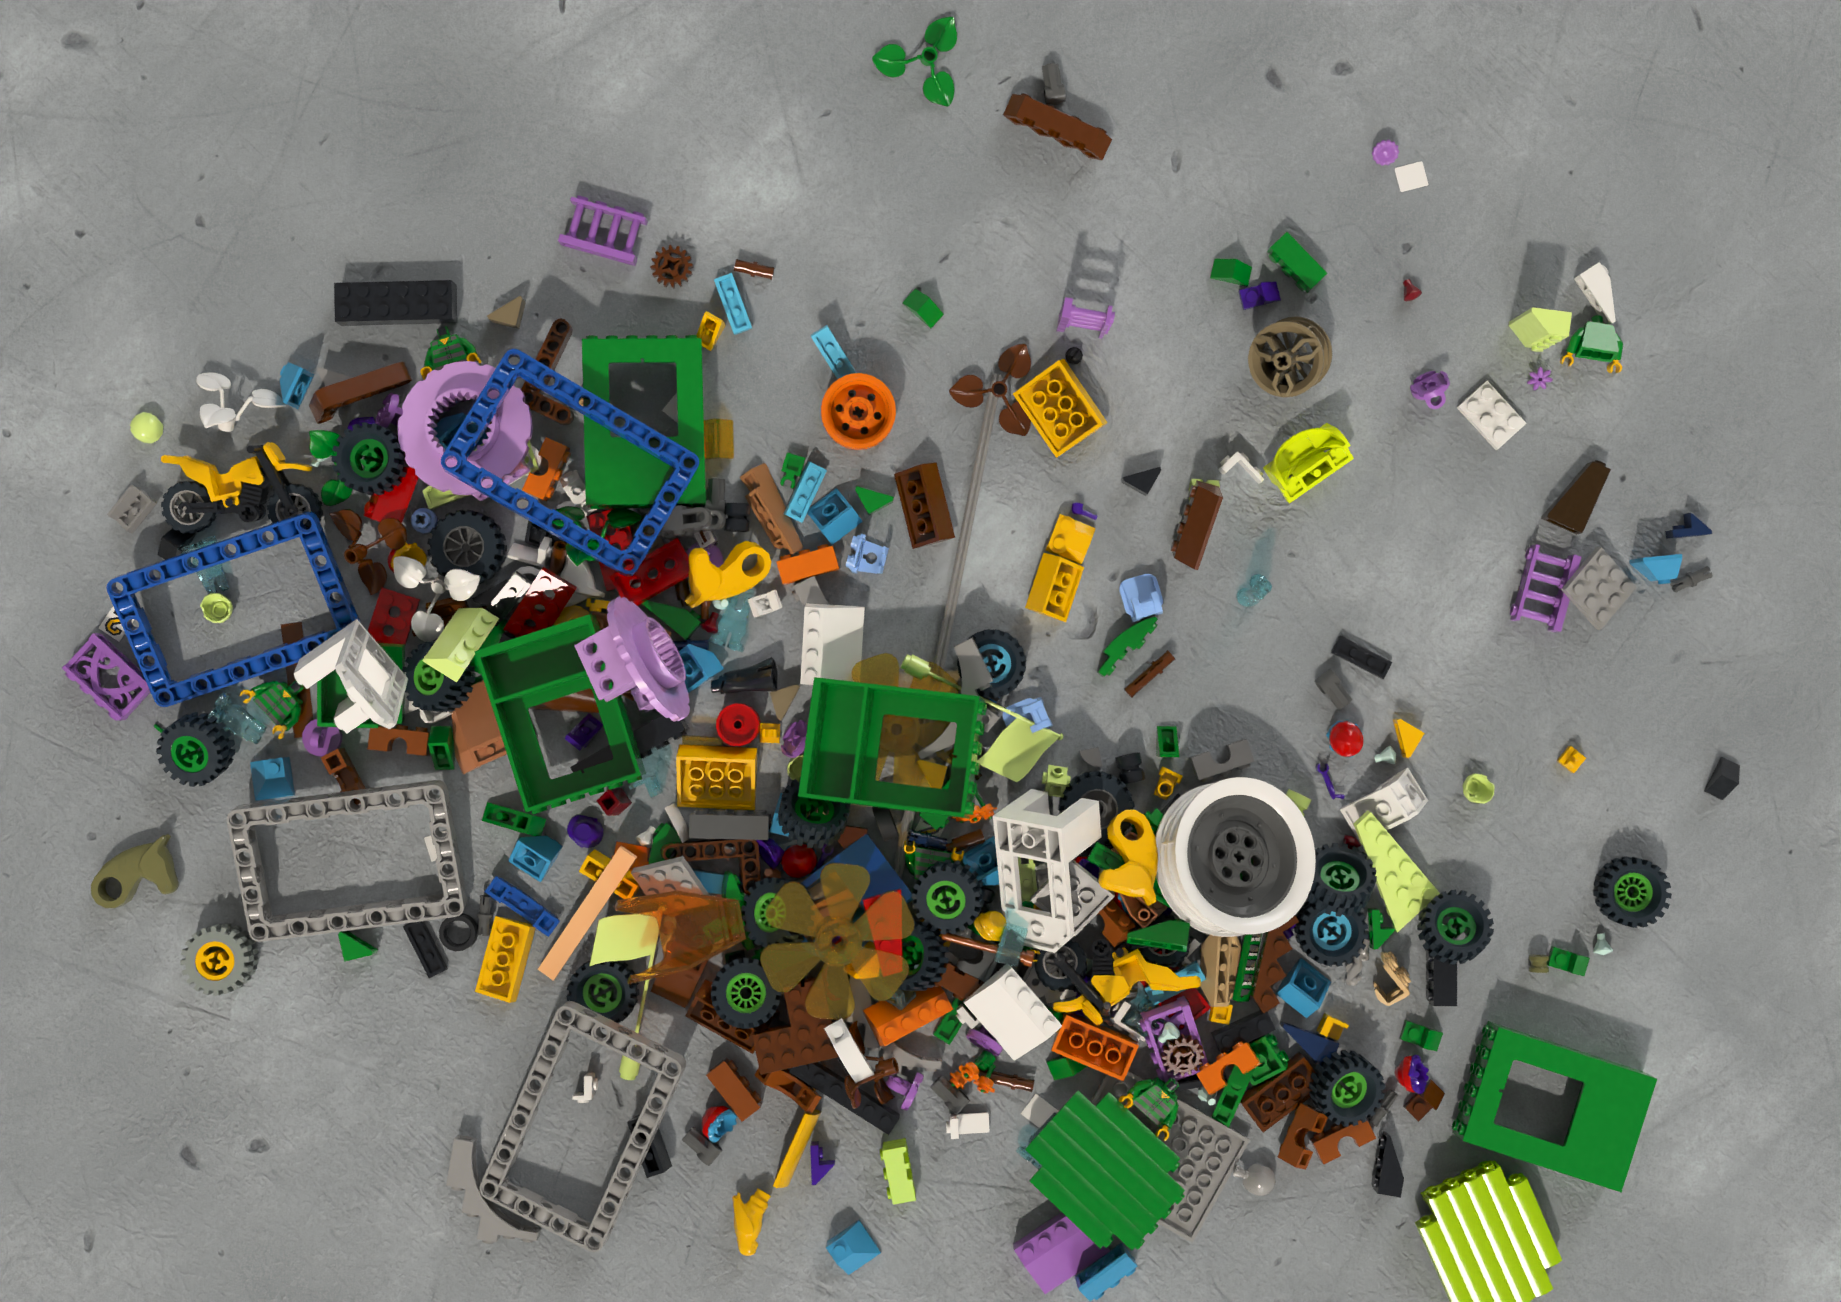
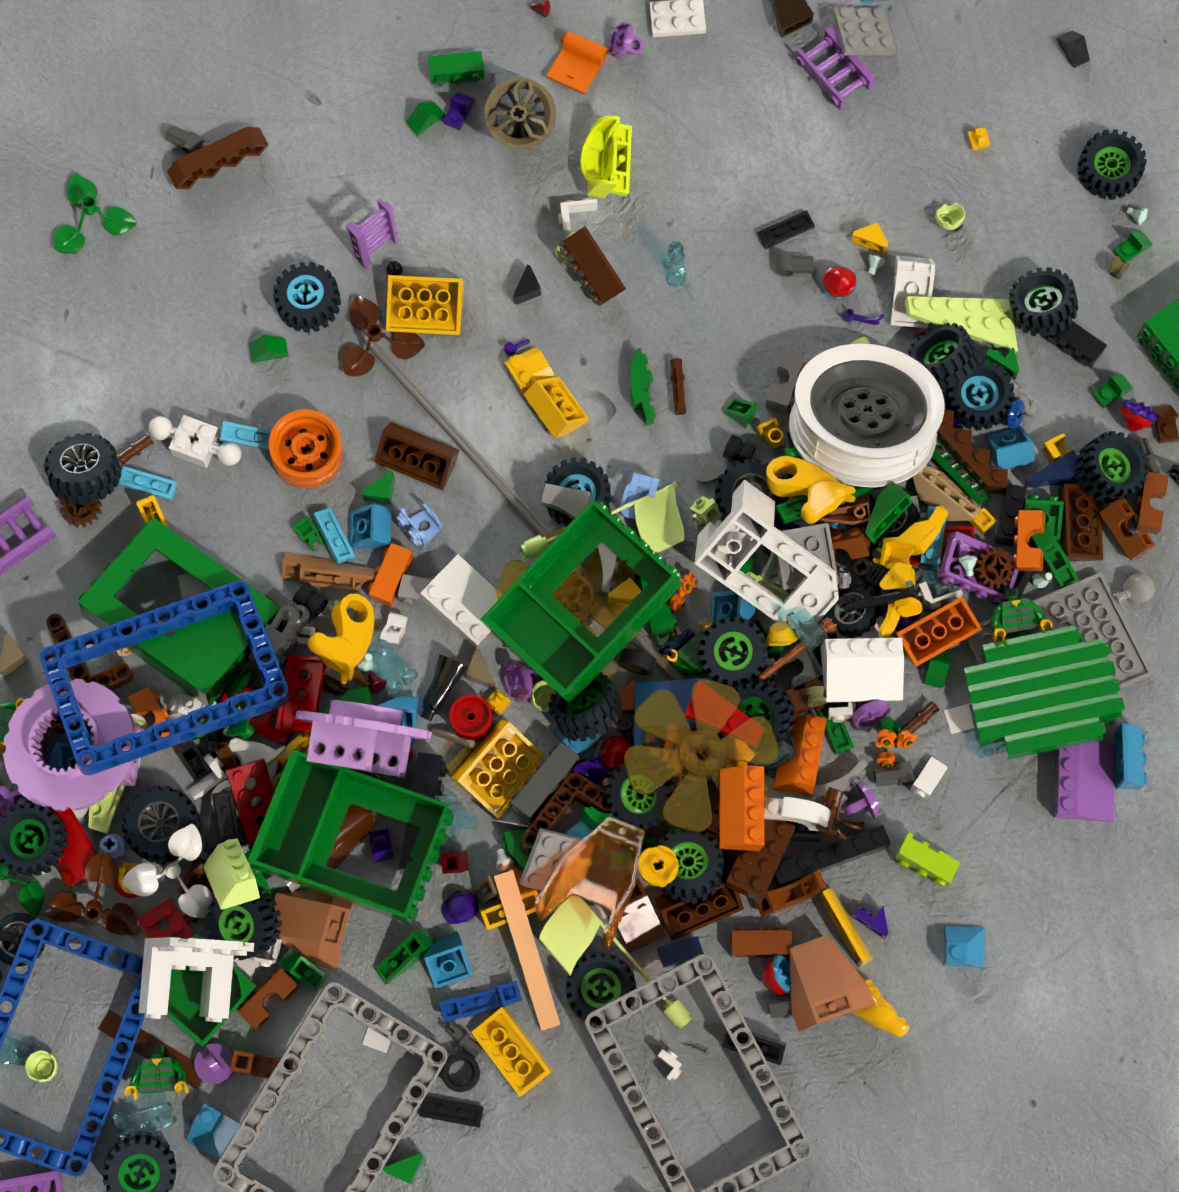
camera: 45 degrees left, 15 degrees down
(612, 842) = (486, 890): none -> dark tan slope
(679, 1031) = (679, 951): none -> dark blue slope
(699, 244) = (82, 469): none -> black wheel
(711, 721) = (453, 737): none -> dark tan piece
(718, 439) = (241, 567): clear yellow panel -> none
(731, 981) = (662, 876): none -> yellow plate
(735, 1167) = (824, 984): none -> nougat wedge
(802, 301) = (184, 444): none -> white brick
(816, 1008) = (741, 808): none -> orange slope
(960, 992) = (815, 696): none -> olive wheel
(966, 841) = (702, 611): reddish brown cylinder -> none
(1002, 322) = (321, 303): none -> black wheel
(1083, 936) = (844, 578): none -> light grey bar
(1141, 596) = (615, 349): light blue piece -> none
(1336, 973) = (1015, 414): none -> blue gear
(1383, 362) = (577, 62): none -> orange door
(1400, 977) = (1055, 368): tan piece -> none

